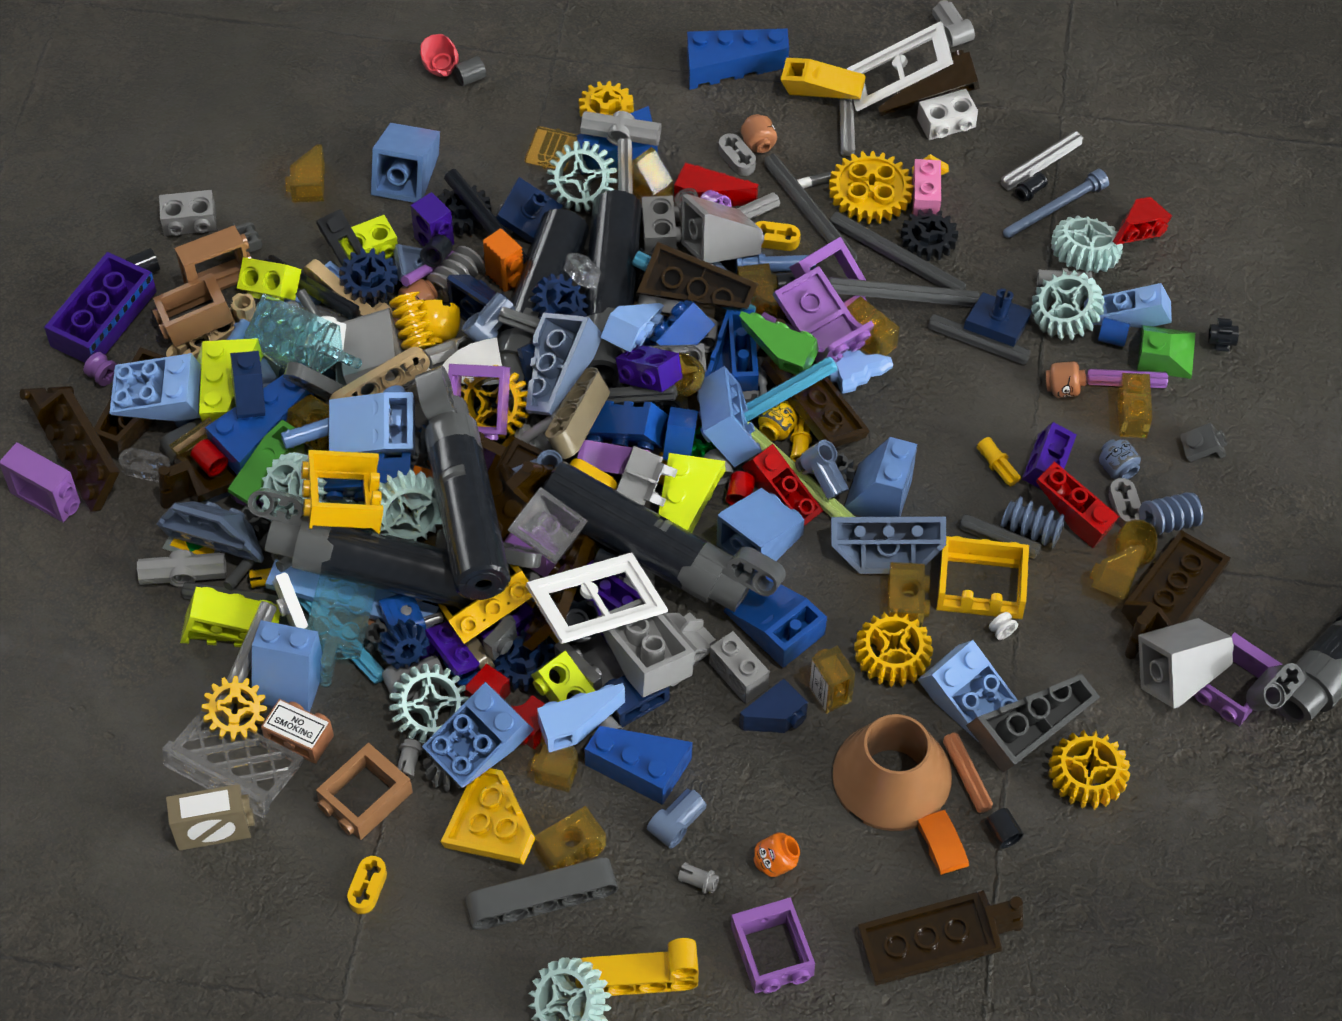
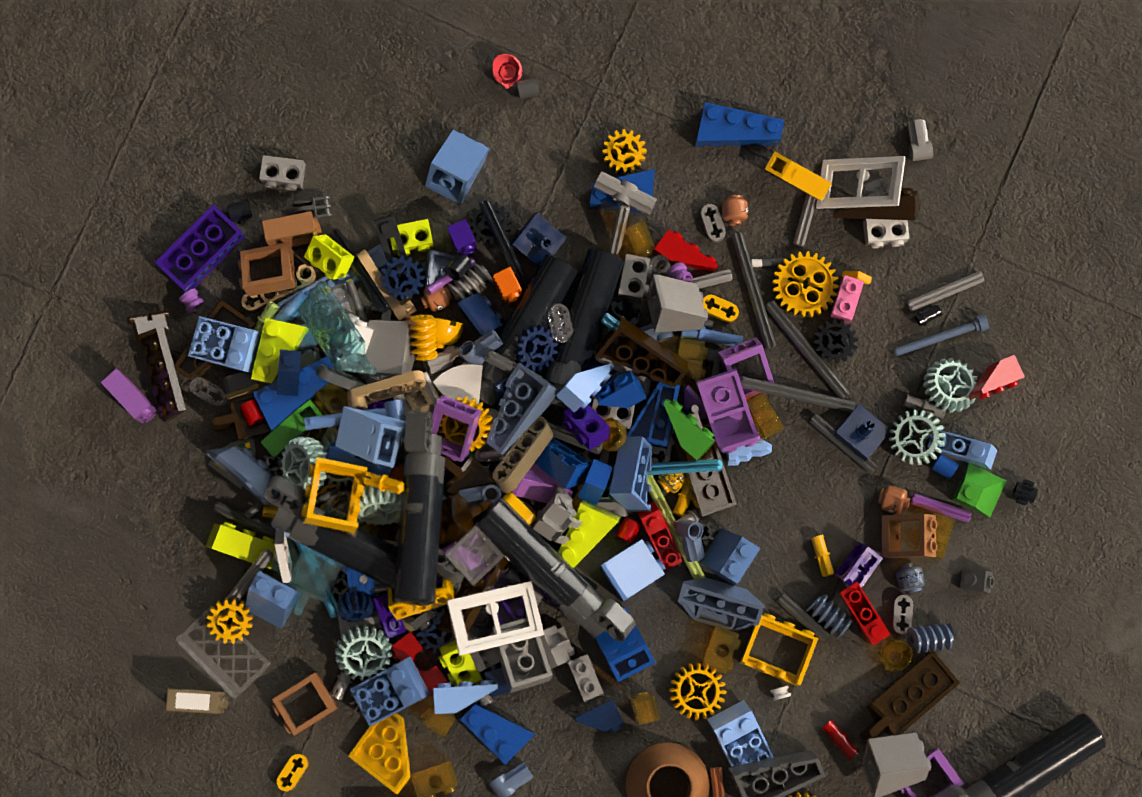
camera: 10 degrees right, 25 degrees up
(181, 567) = (216, 490): light grey piece -> none
(298, 730) = (271, 644): brick -> none
(307, 177) = (380, 161): clear yellow slope -> none
(404, 463) = (383, 483): none -> yellow axle
(546, 144) = (572, 177): clear yellow piece -> none
(580, 164) = (592, 219): light aqua gear -> none
(1102, 662) = (840, 739): none -> red pin
(1110, 422) = (891, 536): none -> medium nougat window
(1118, 571) = (875, 675): clear yellow slope -> none

